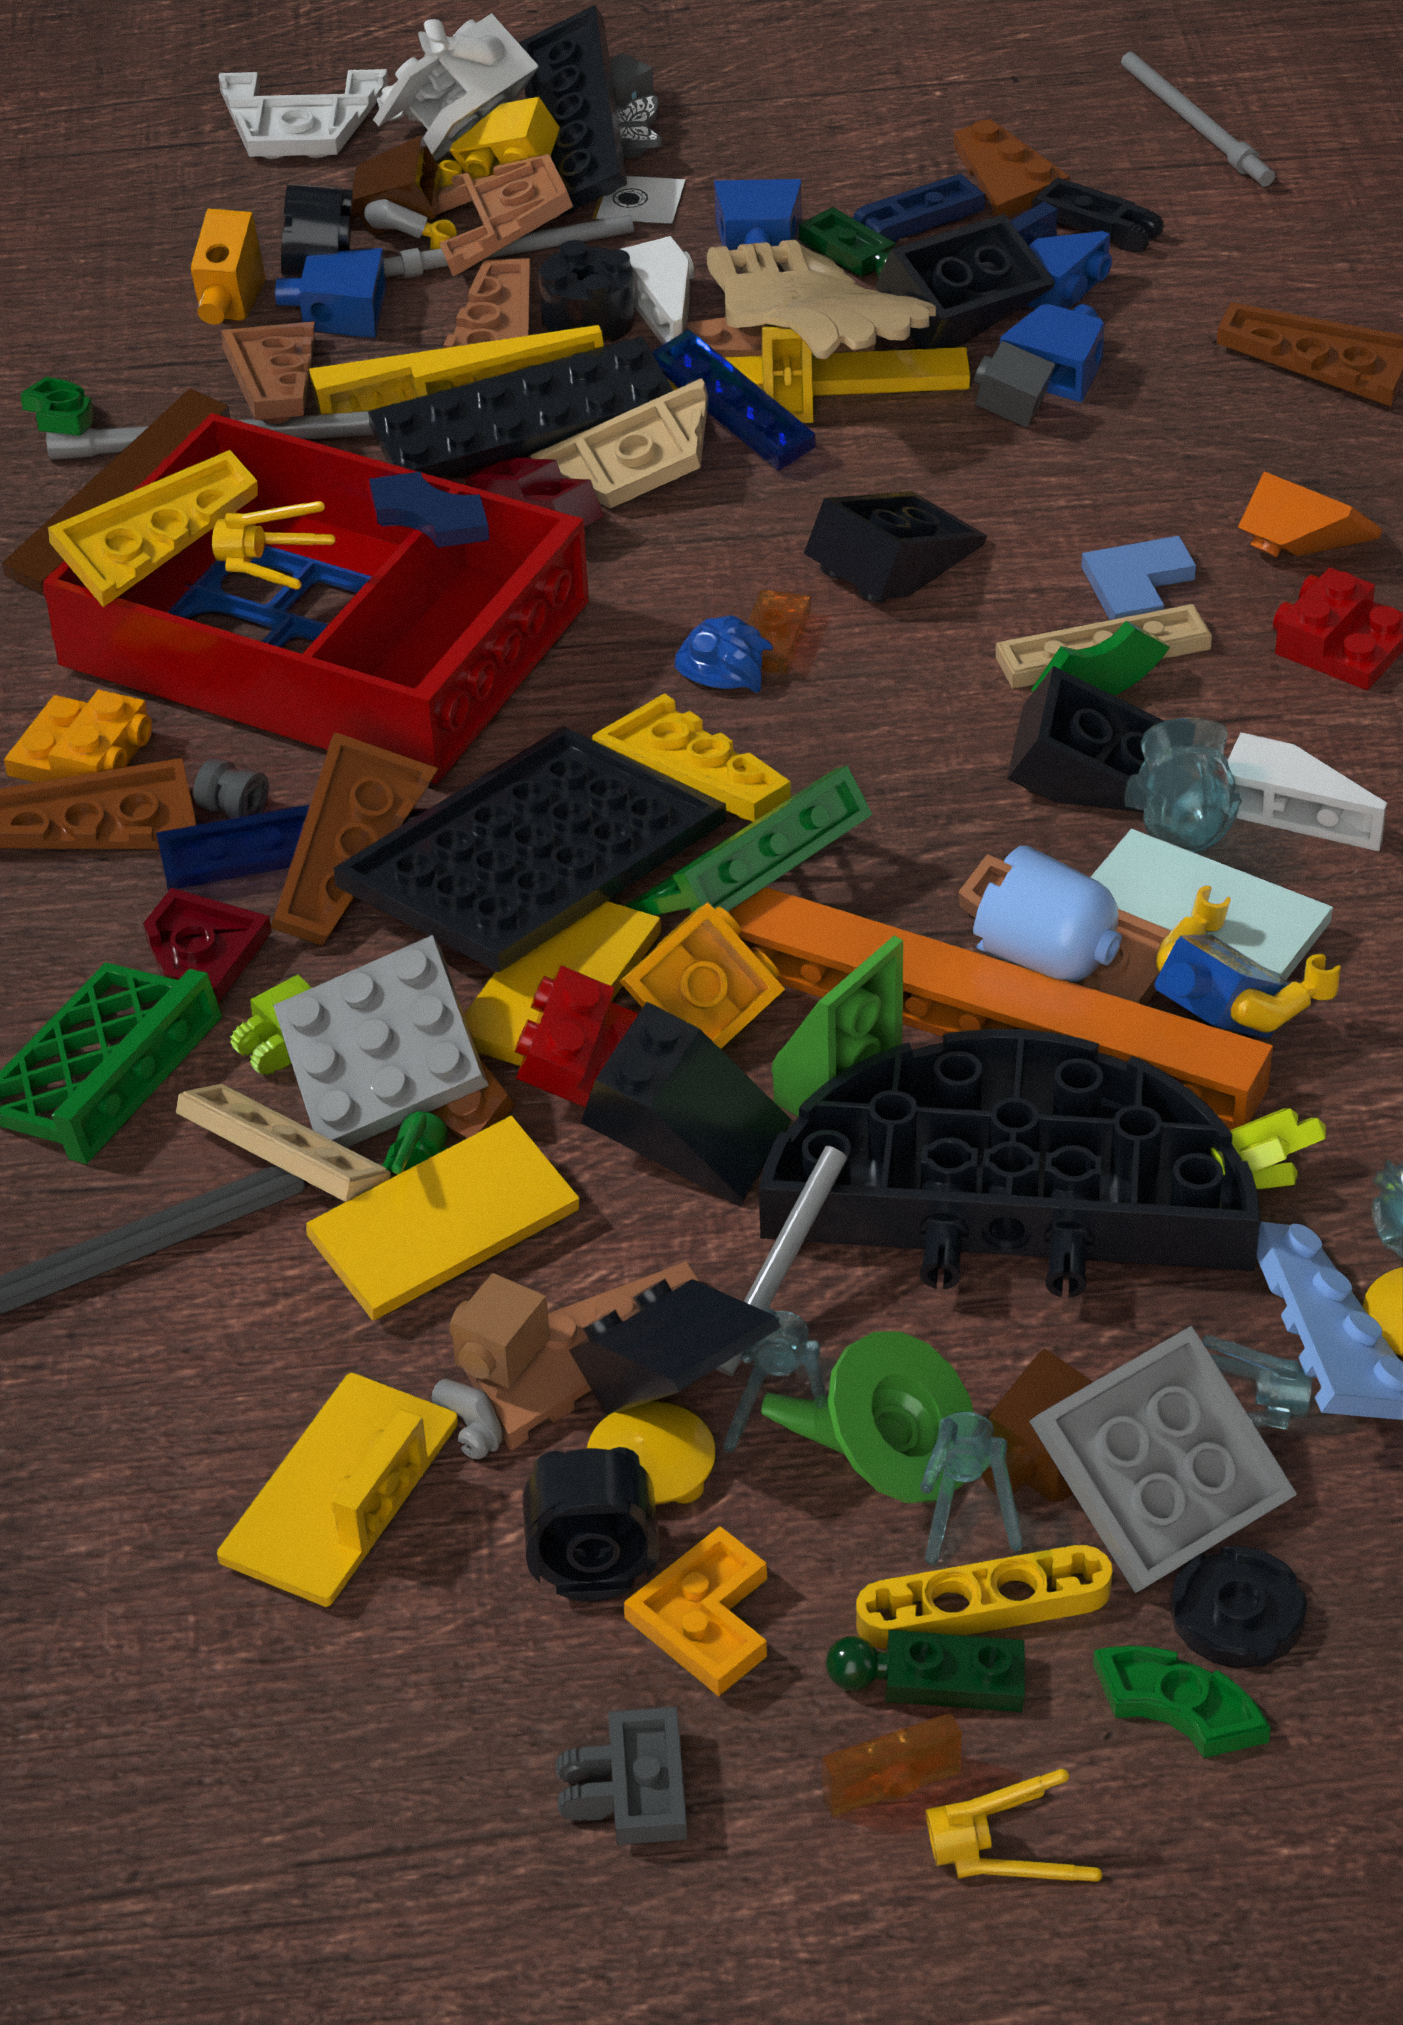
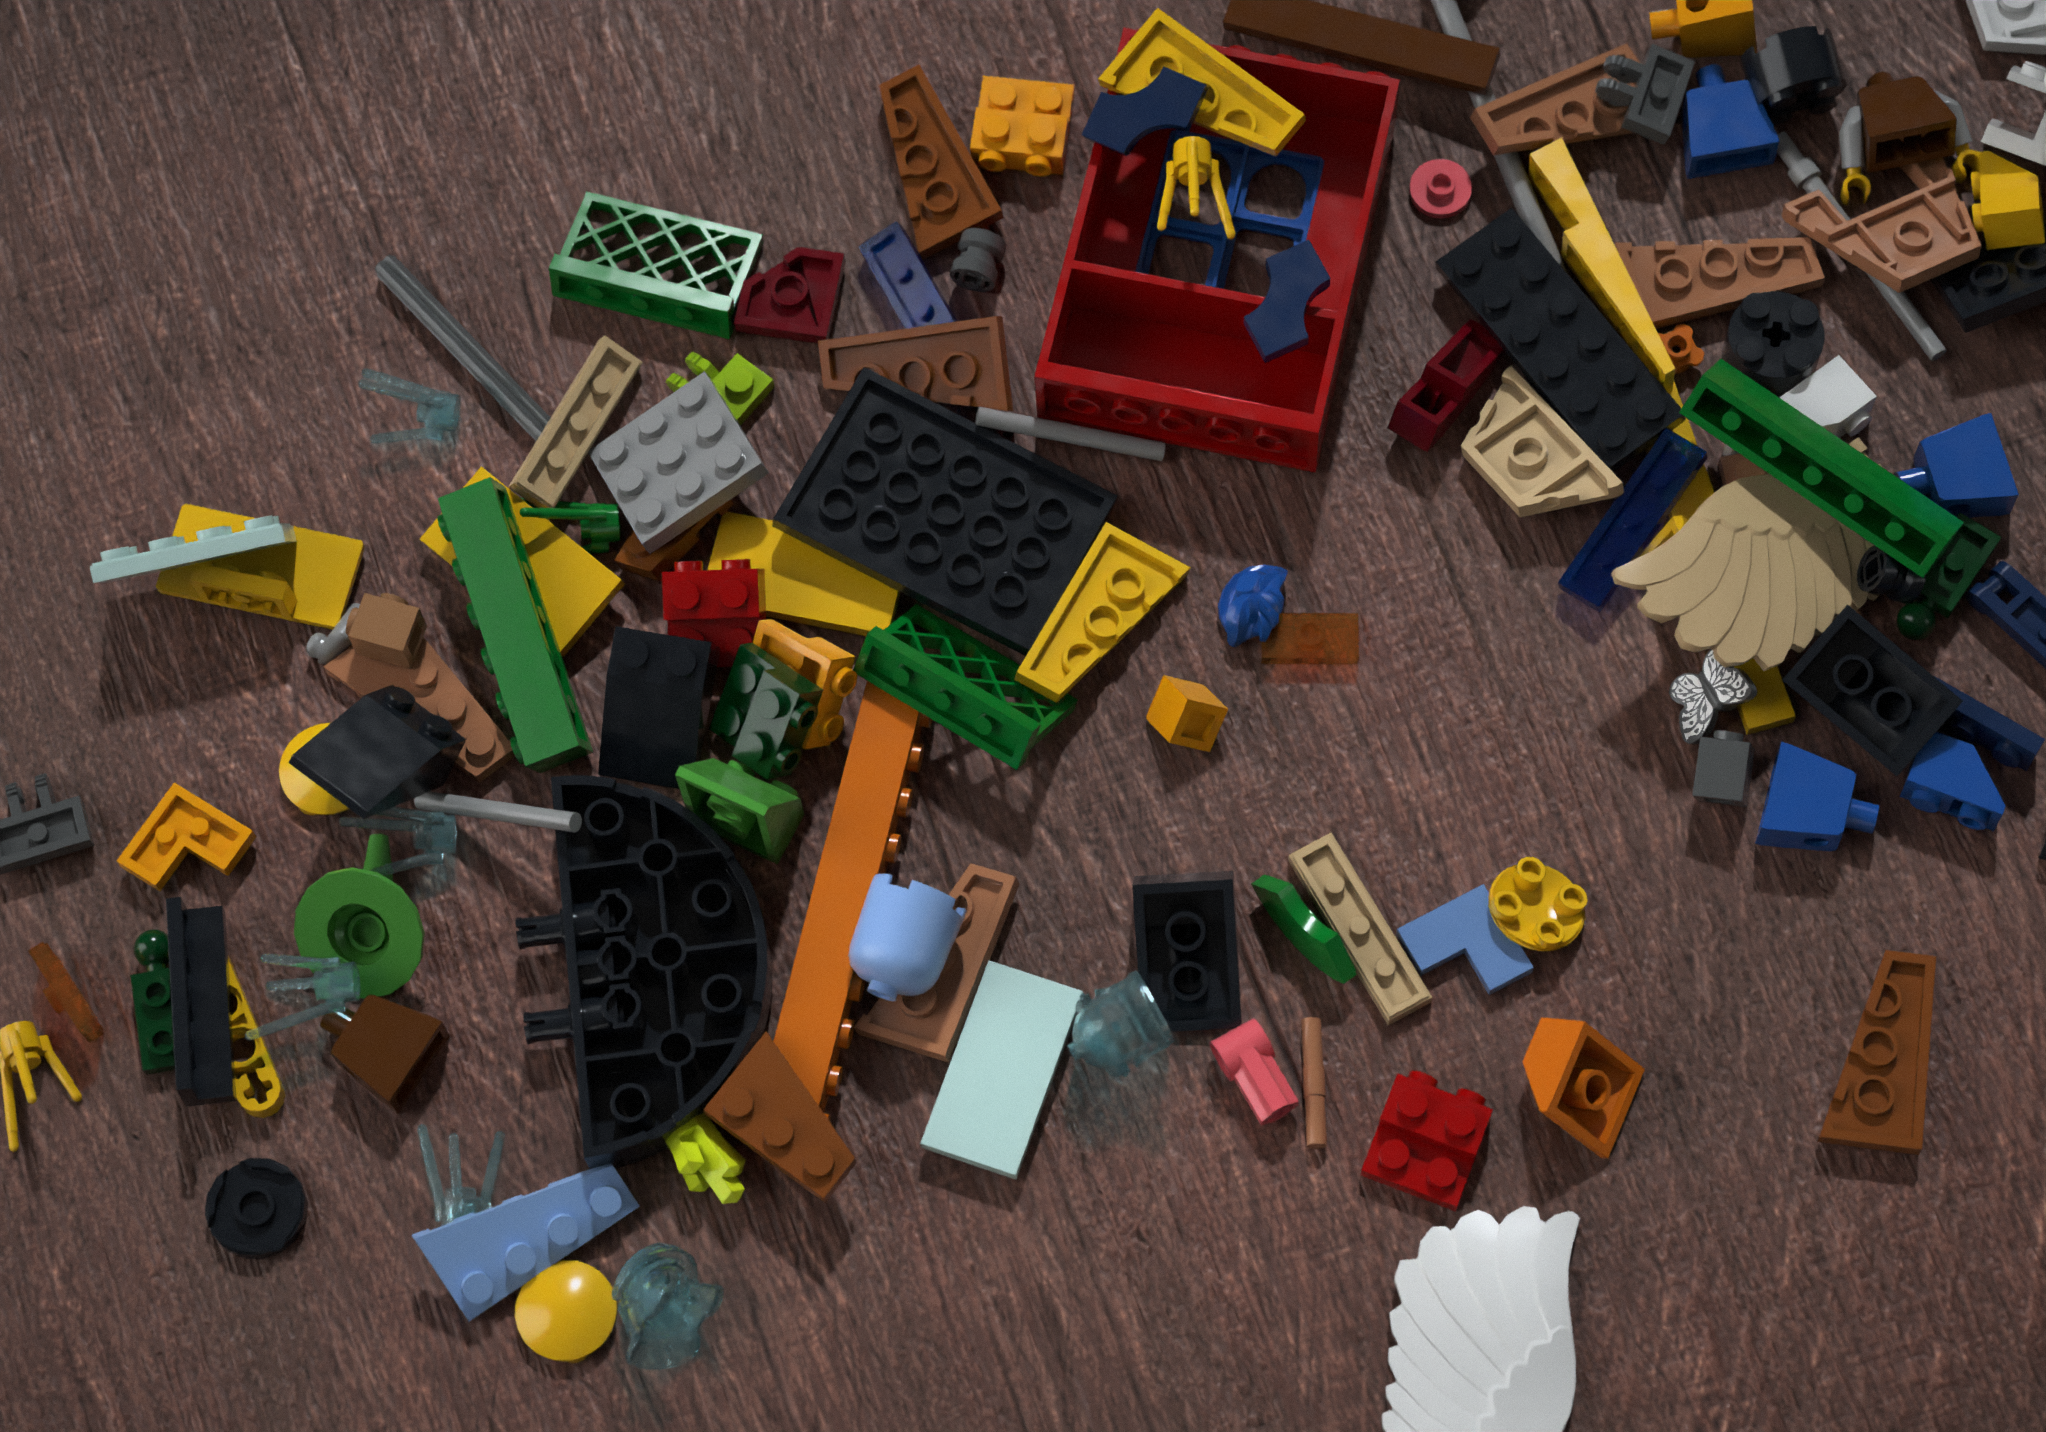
camera: 80 degrees right, 25 degrees up
(163, 539) = (1164, 104): none -> dark blue tile
(195, 1280) = (435, 407): none -> clear light blue plant
(277, 312) = (1657, 91): none -> dark grey hinge
(316, 1502) = (175, 553): none -> light aqua tile
(475, 748) = (1070, 433): none -> light grey bar
(536, 1212) = (514, 626): none -> green brick
(590, 1522) = (229, 740): black brick -> none
(643, 199) = (1998, 355): white sticker -> none
(738, 997) = (765, 712): none -> dark green plate
(739, 253) = (1821, 467): none -> green brick
(831, 716) = (1186, 713): none -> light orange panel
(860, 257) = (1883, 574): none -> black wheel
(888, 542) = (1456, 713): black slope -> none
(928, 381) = (1707, 694): none -> dark grey animal
(955, 1600) = (200, 1003): none -> black fence
(1114, 522) = (1537, 906): none -> yellow dish
(1162, 1458) = (349, 1126): light grey plate -> none
(1194, 1701) = (171, 1181): green tile -> none
(1228, 985) = (884, 1093): torso -> none
(1246, 1053) = (781, 1121): none -> dark orange wing
(1264, 699) = (1314, 1083): none -> nougat piece
(1273, 718) = (1249, 1060): none -> coral piece
(1302, 794) = (1173, 1117): white slope -> none

